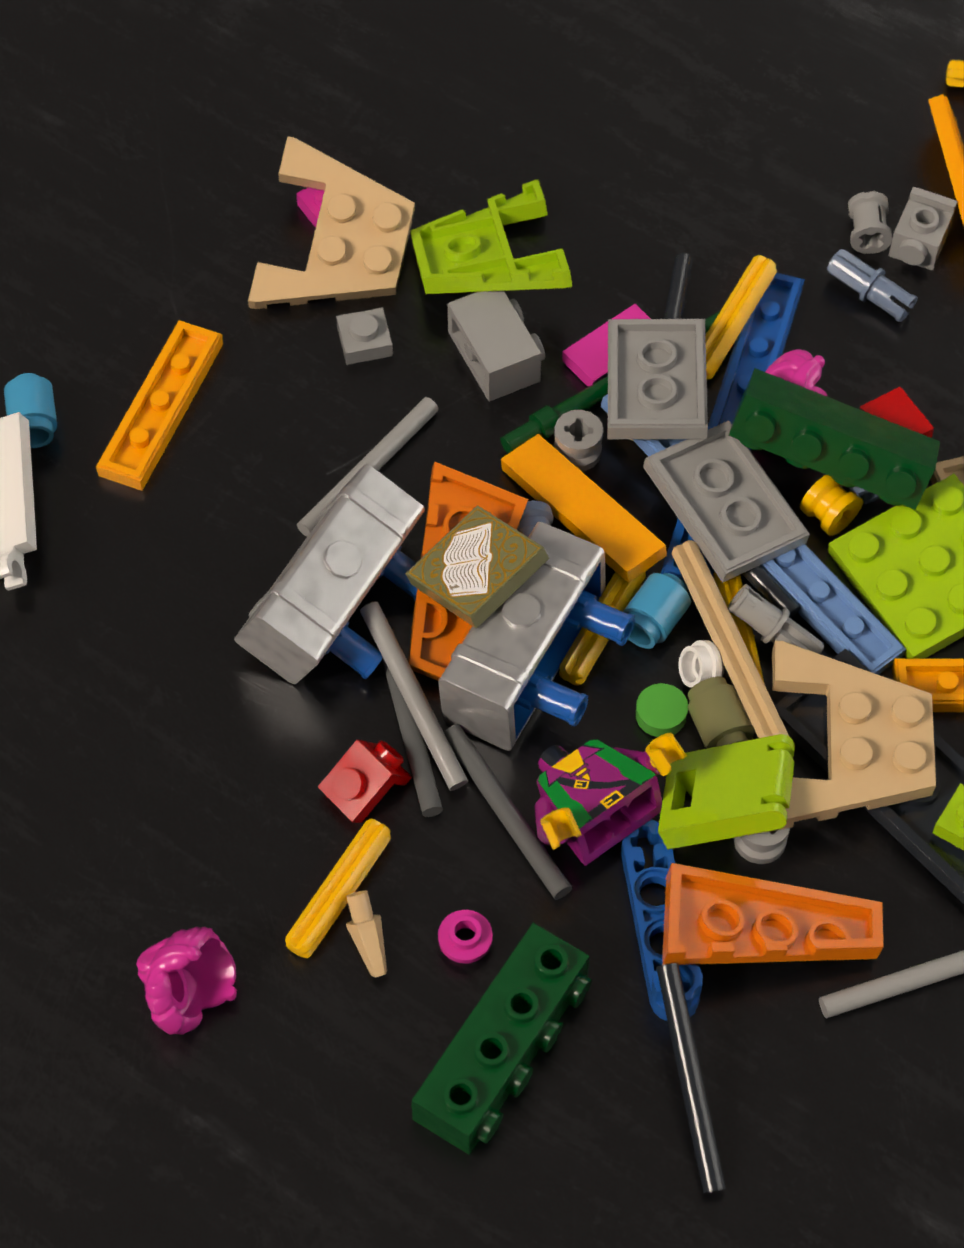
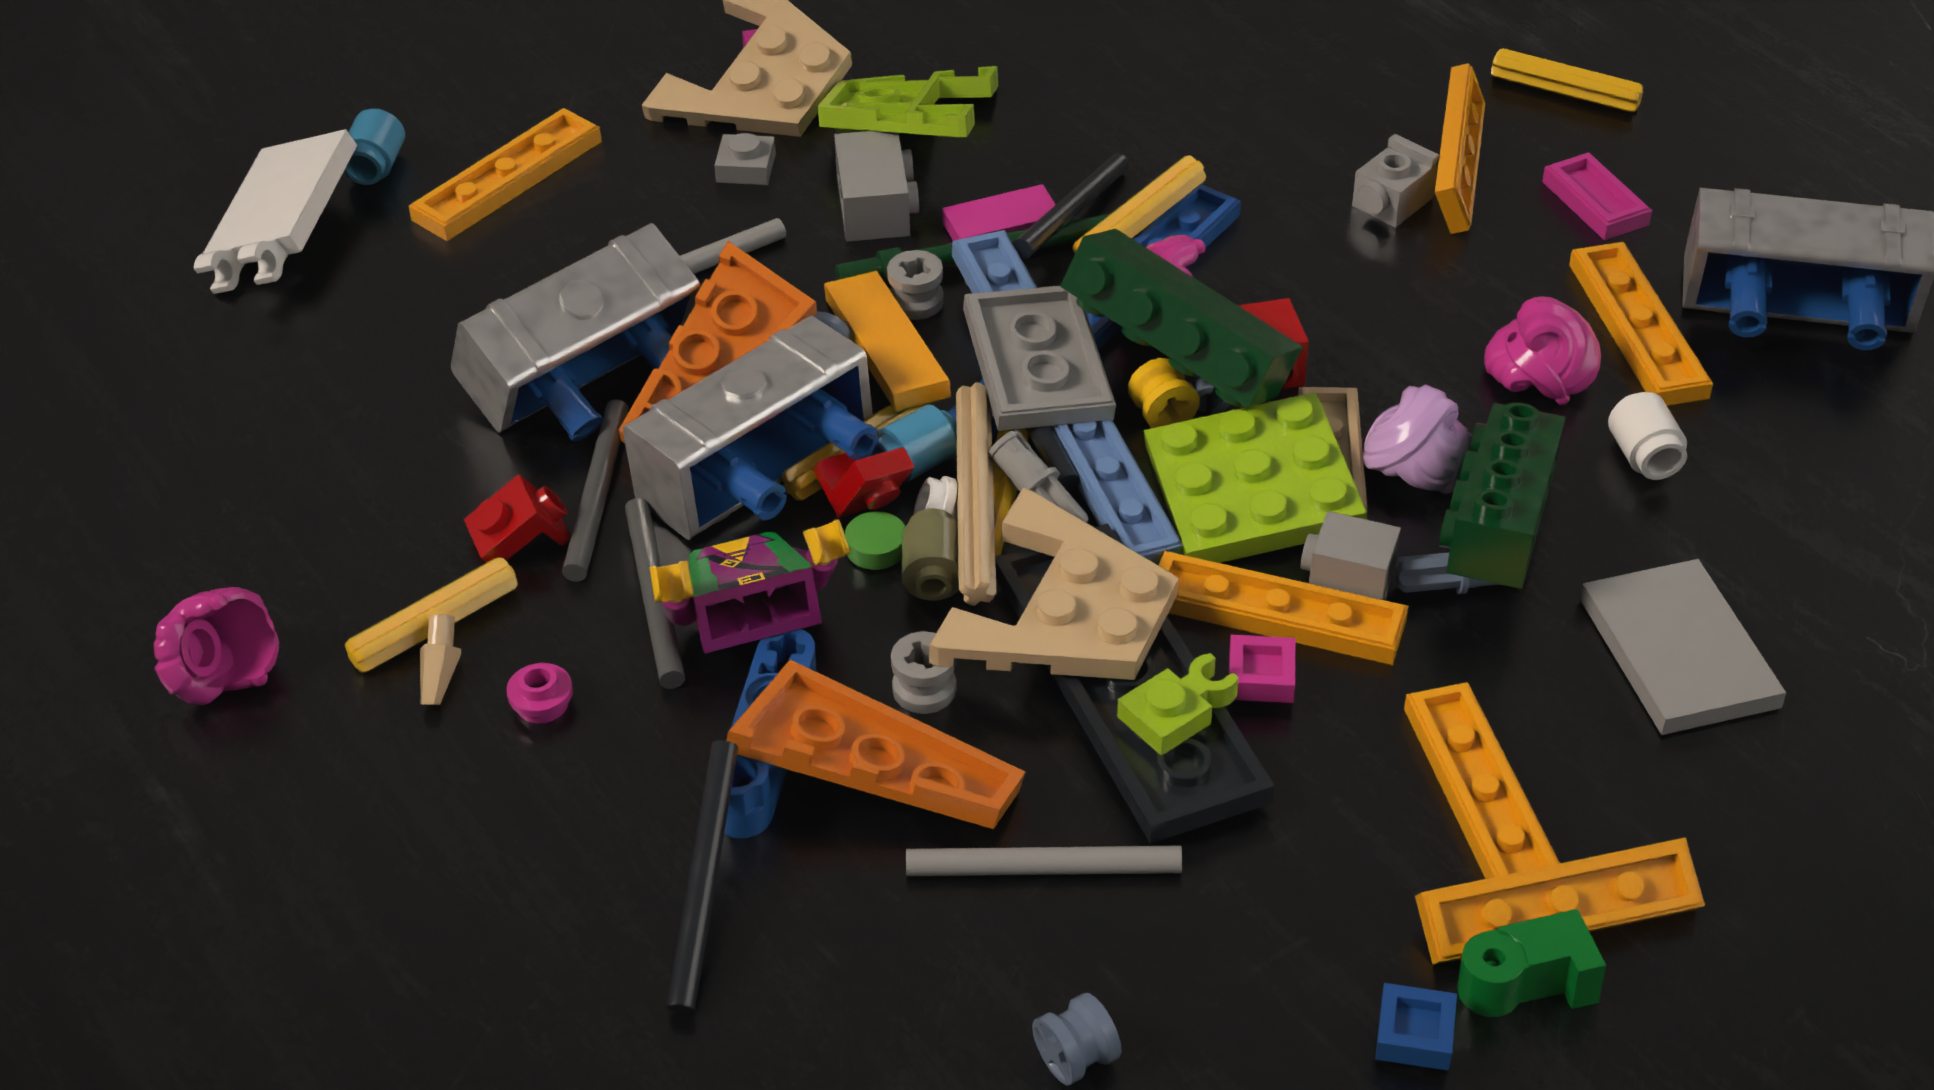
camera: 20 degrees right, 15 degrees down
(414, 696) = (609, 461): light grey bar -> none
(477, 566) = (721, 338): tile -> none
(501, 1039) = (517, 790): dark green brick -> none
(630, 665) = (863, 482): none -> red bracket
(657, 379) = (1015, 233): light grey tile -> none
(732, 789) = (890, 612): lime container -> none
(869, 221) = (1342, 170): light grey bush -> none
(871, 284) = (1314, 219): sand blue axle -> none

